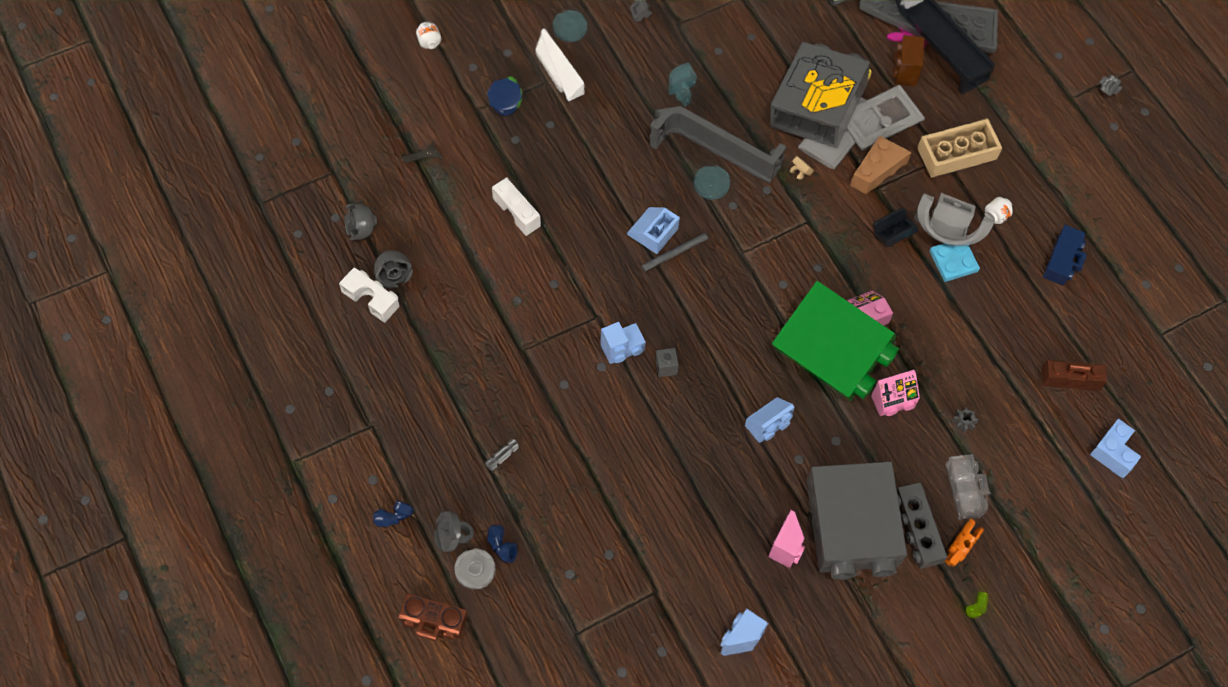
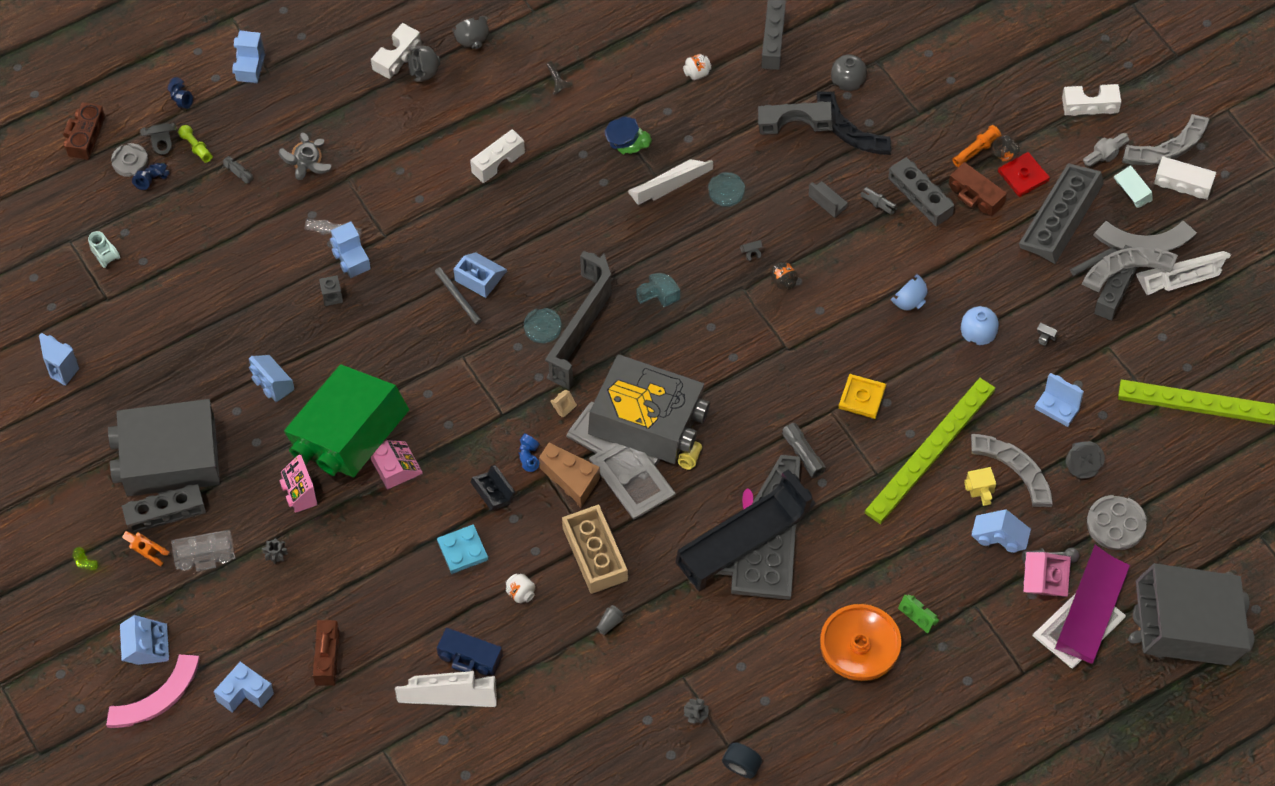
camera: 90 degrees right, 5 degrees down
(359, 439) = (249, 56): none -> light blue brick
(472, 492) = (198, 148): none -> lime pin
(498, 383) = (305, 157): none -> dark grey animal
(585, 368) = (323, 226): none -> clear pin
(600, 590) = (104, 251): none -> light aqua piece
(788, 543) = (144, 390): bright pink slope -> none
(863, 199) = (529, 462): none -> blue arm
(908, 60) = (703, 498): reddish brown piece -> none
(951, 220) = (498, 536): light grey piece -> none
(1024, 144) = (610, 619): none -> dark grey cone
(1071, 543) = (143, 641): none -> light blue slope
(1100, 274) = (449, 689): none -> white wedge
(1129, 528) = (160, 700): none -> bright pink tile
(1155, 55) = (742, 760): none -> black wheel

